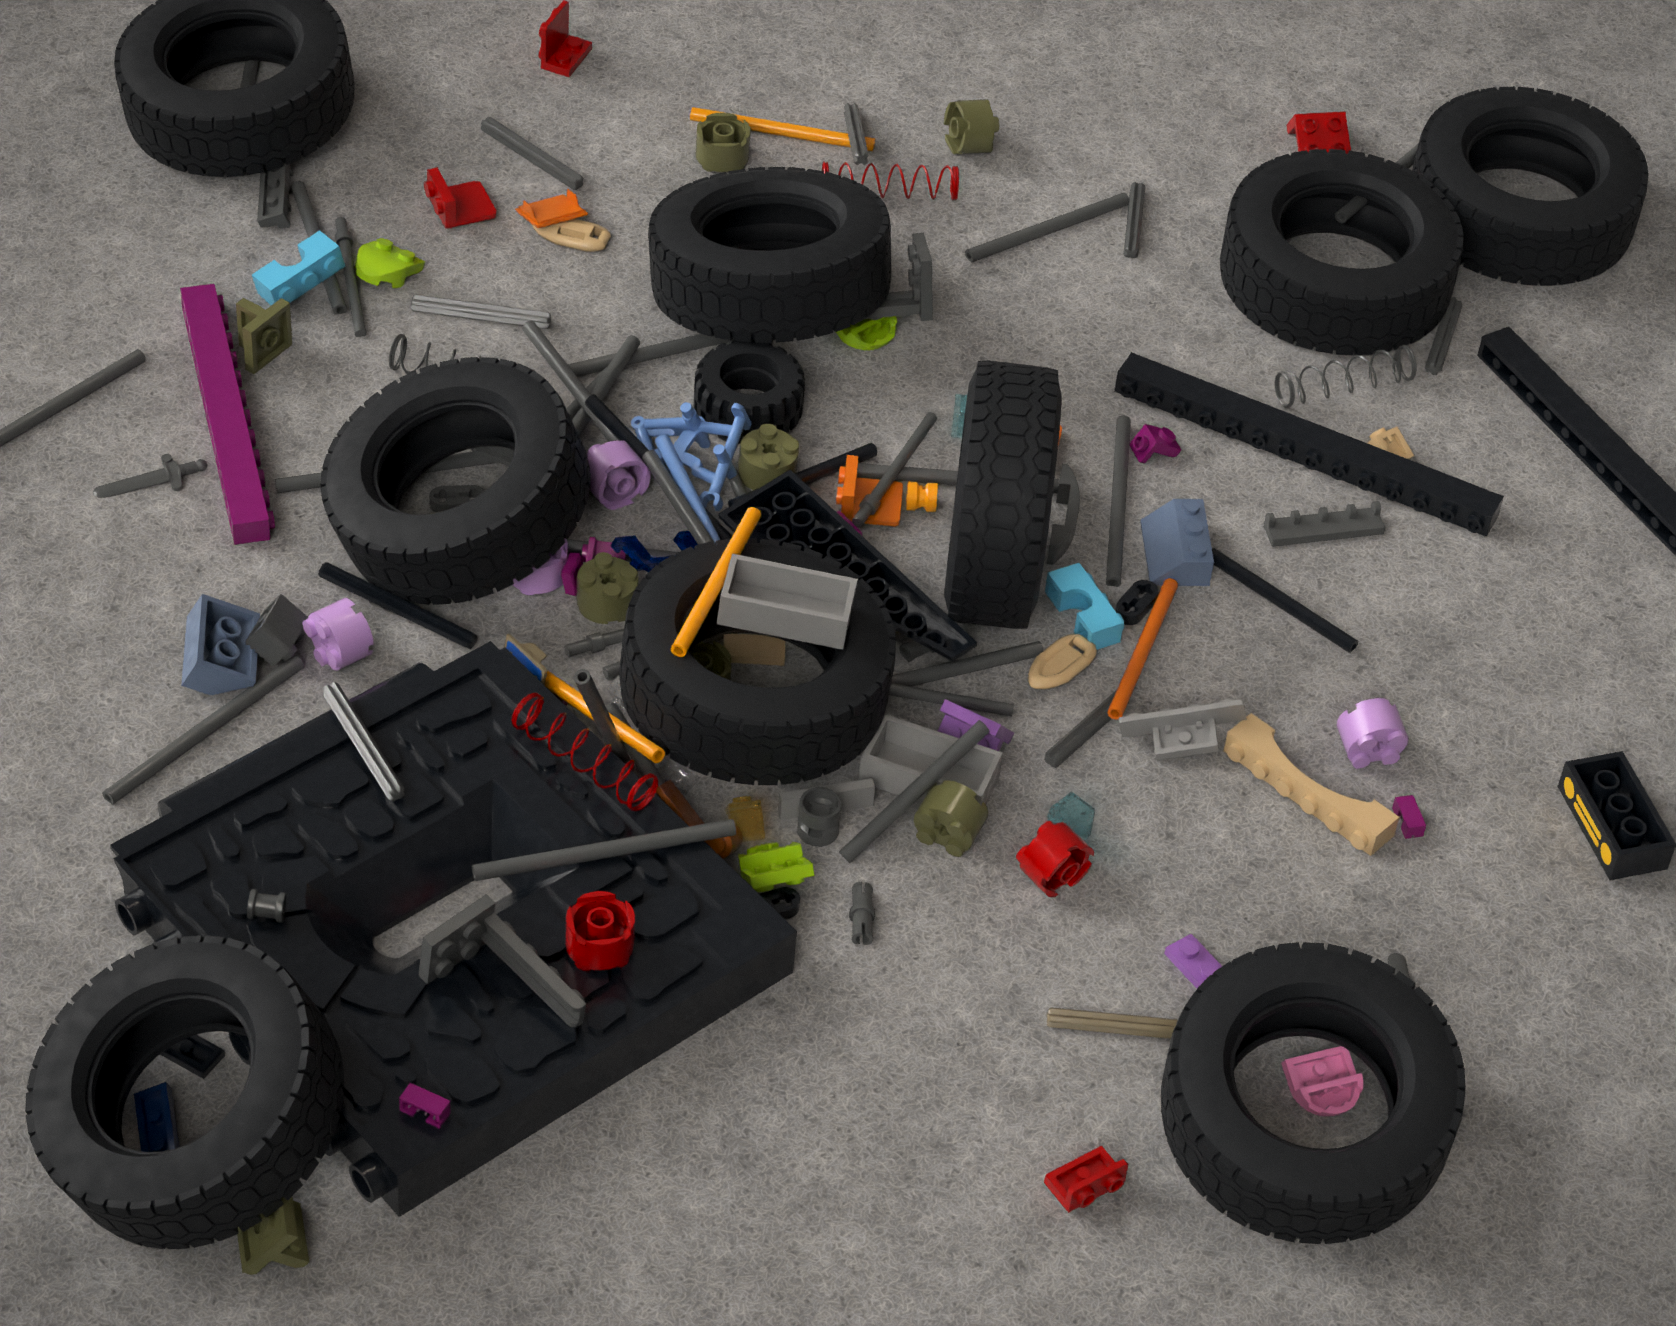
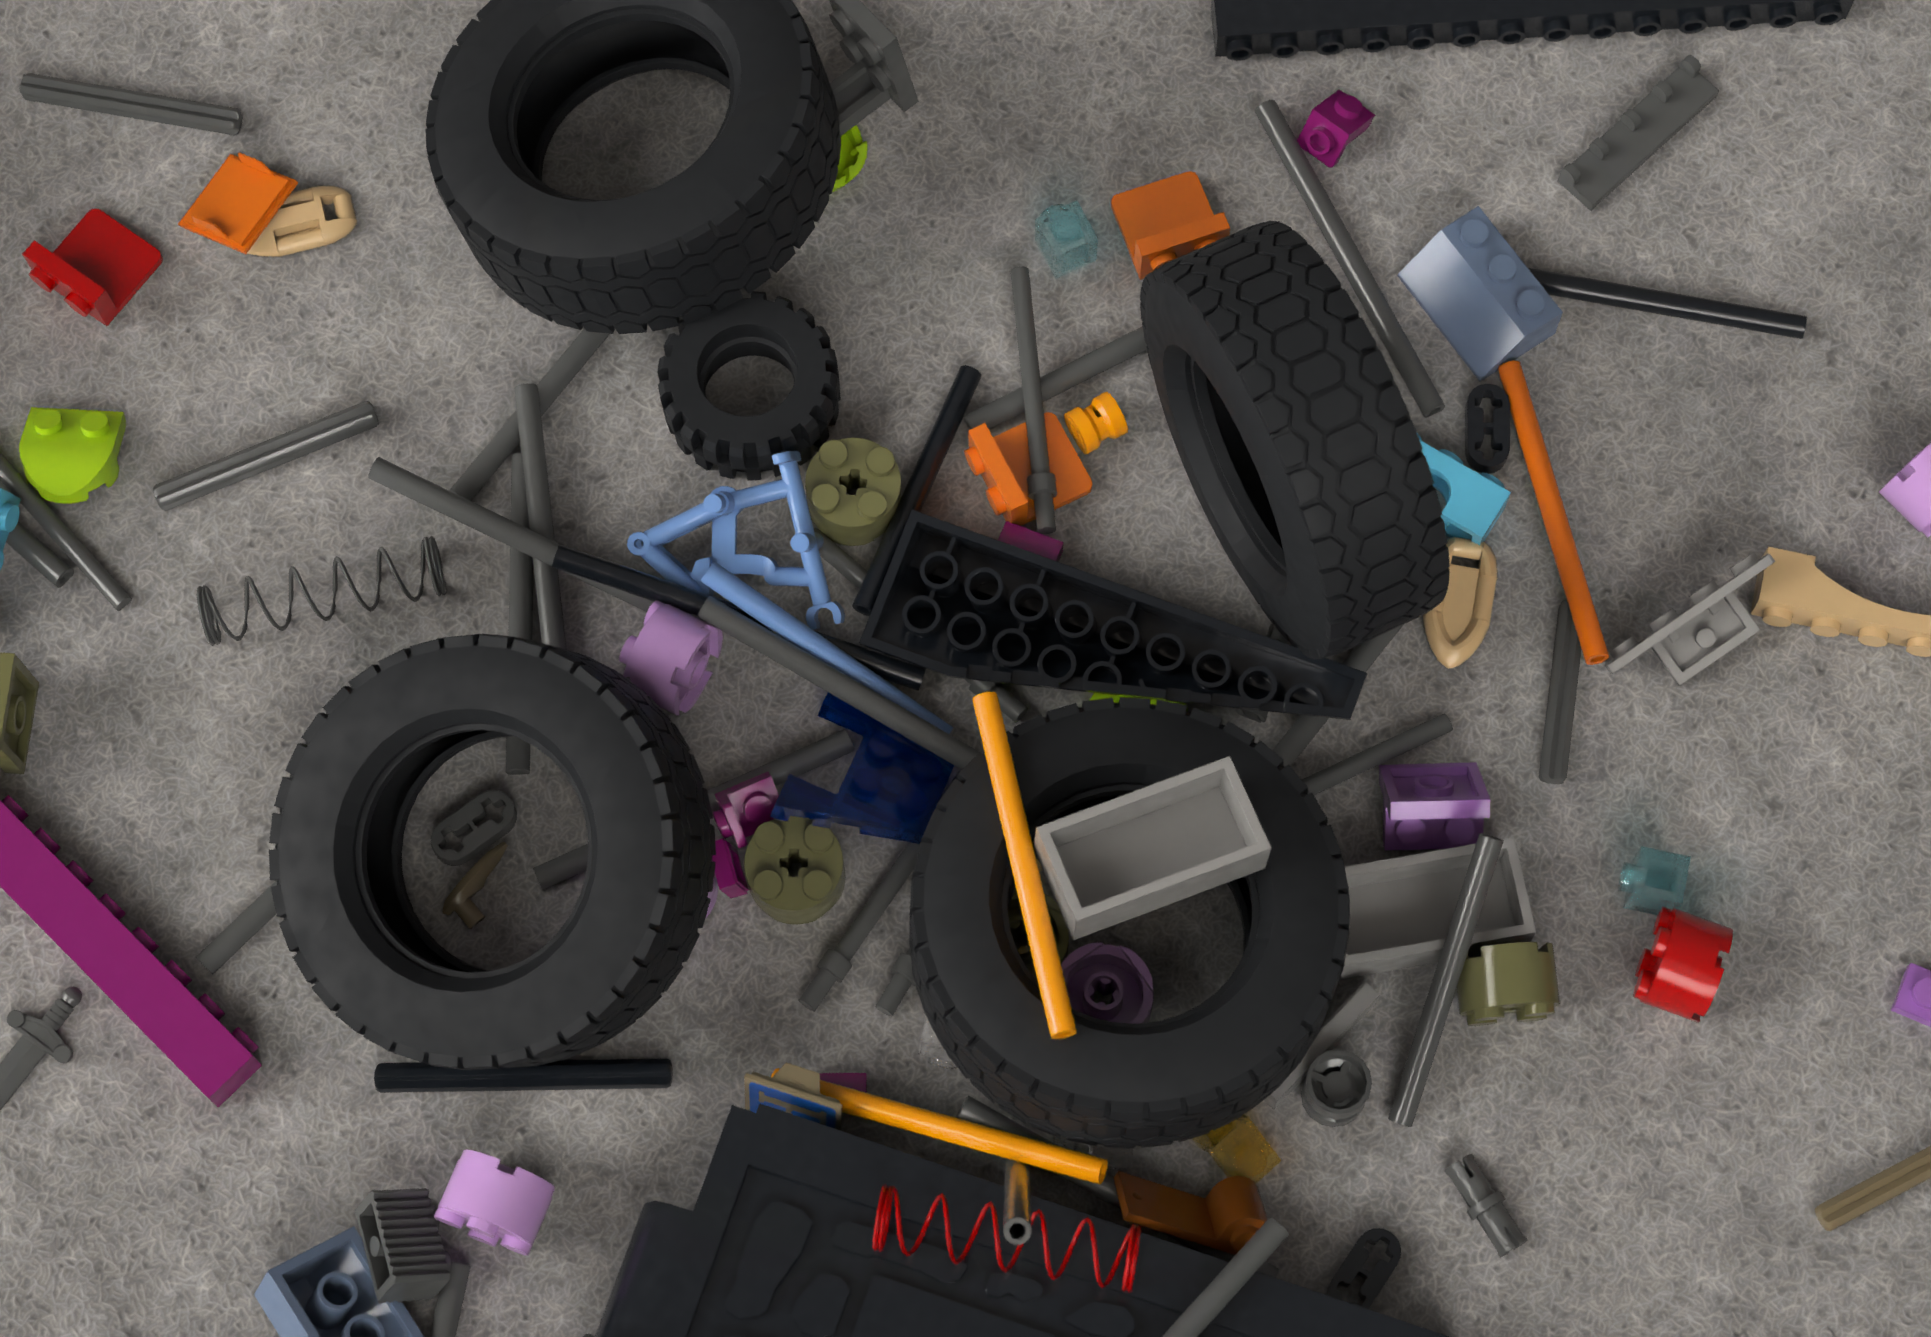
camera: 25 degrees left, 25 degrees up
(771, 865) = (1329, 1207): lime slope -> none

